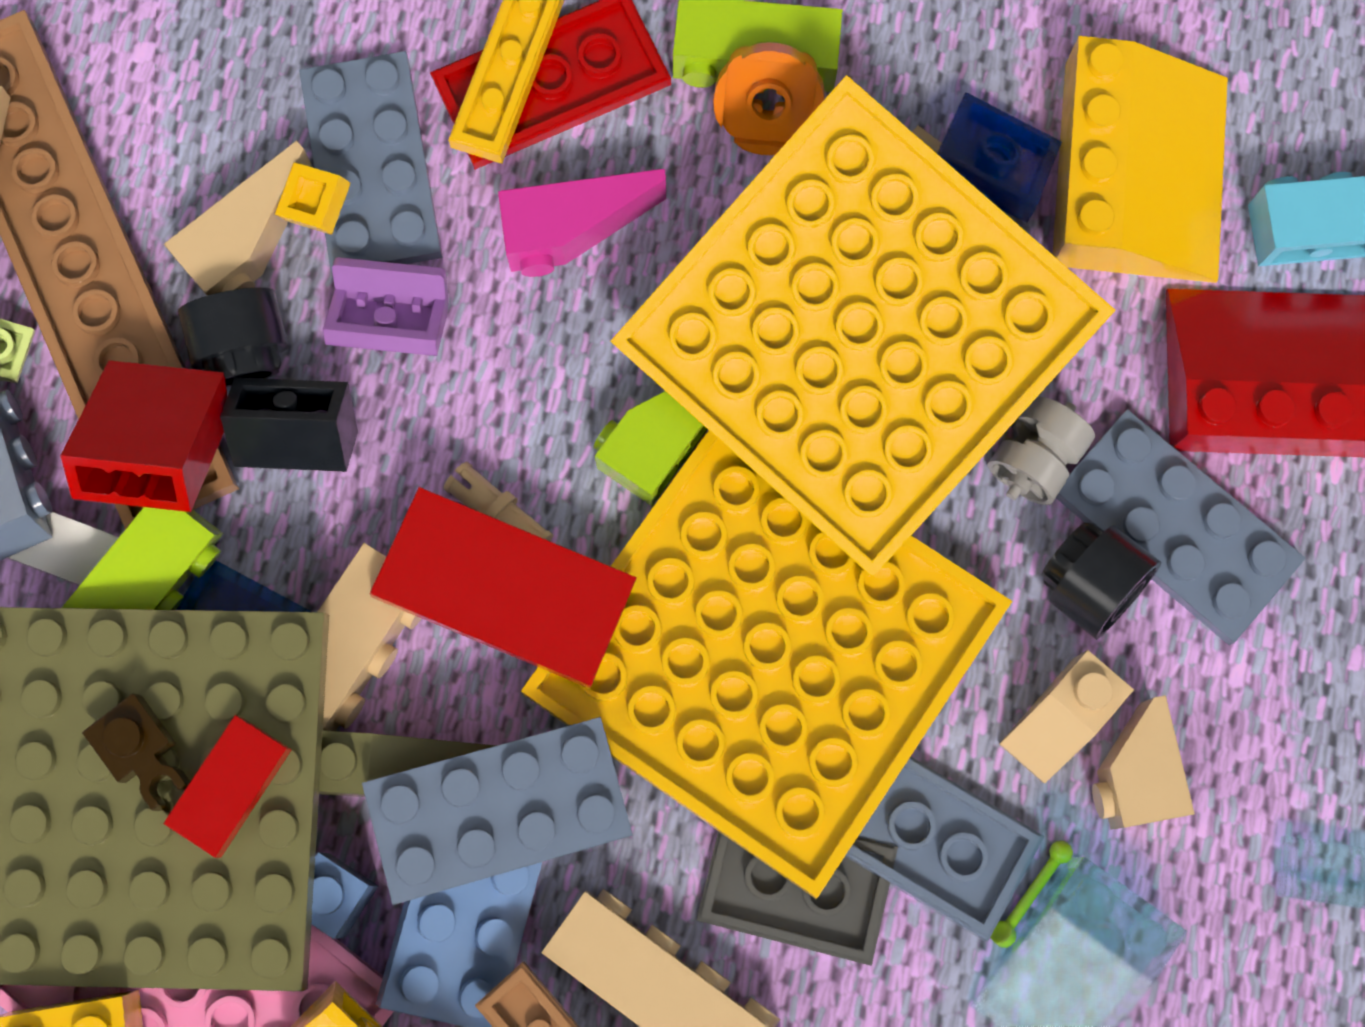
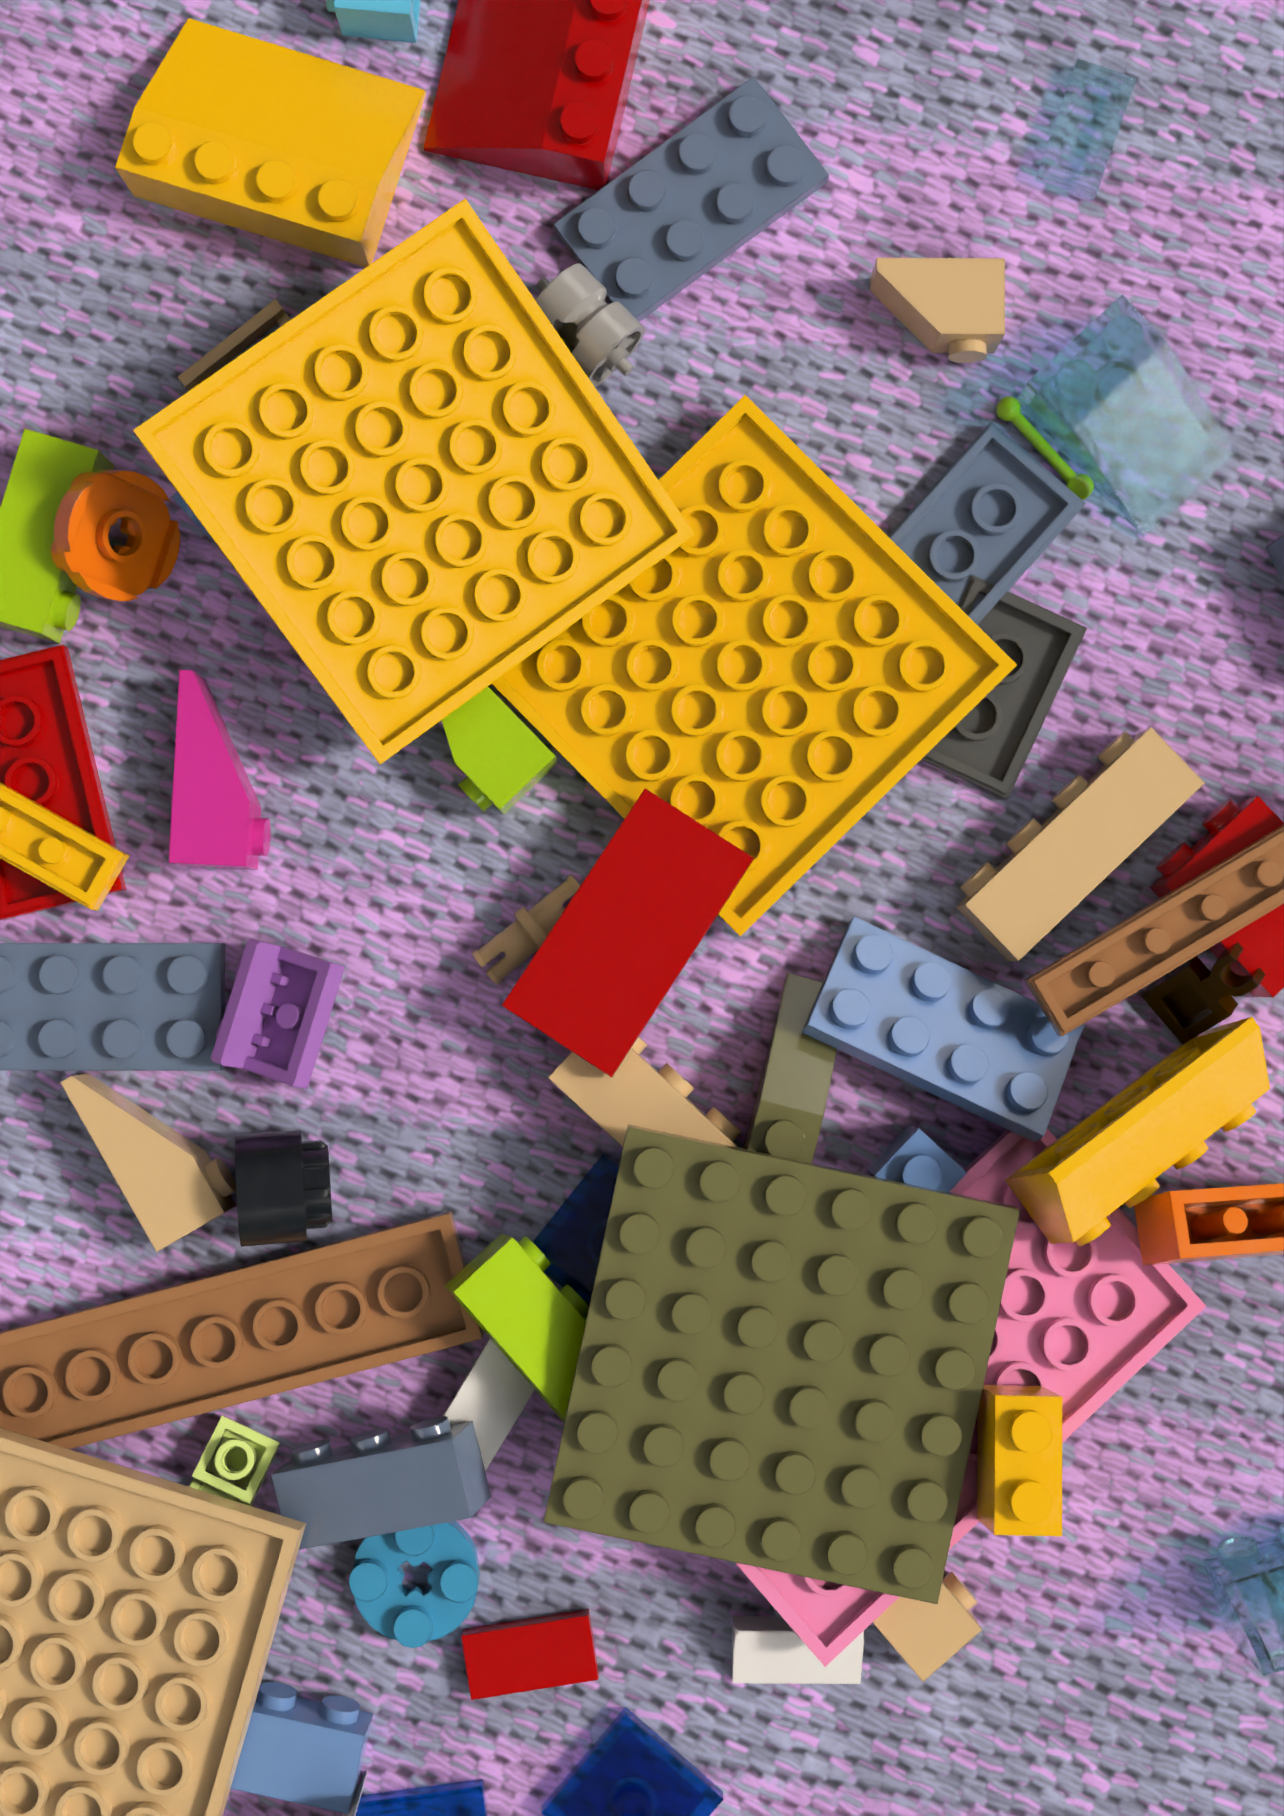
camera: 80 degrees left, 10 degrees up
(132, 744) = (734, 1350): dark brown plate -> none
(146, 436) = (388, 1294): red brick -> none
(227, 786) = (800, 1254): red tile -> none
(289, 424) = (395, 1140): black brick -> none
(312, 198) = (134, 1074): yellow plate -> none
(496, 810) = (867, 979): sand blue plate -> none
(999, 155) = (235, 294): clear blue plate -> none
(1066, 716) = (873, 367): tan slope -> none
(1098, 576) = (735, 297): black piece -> none

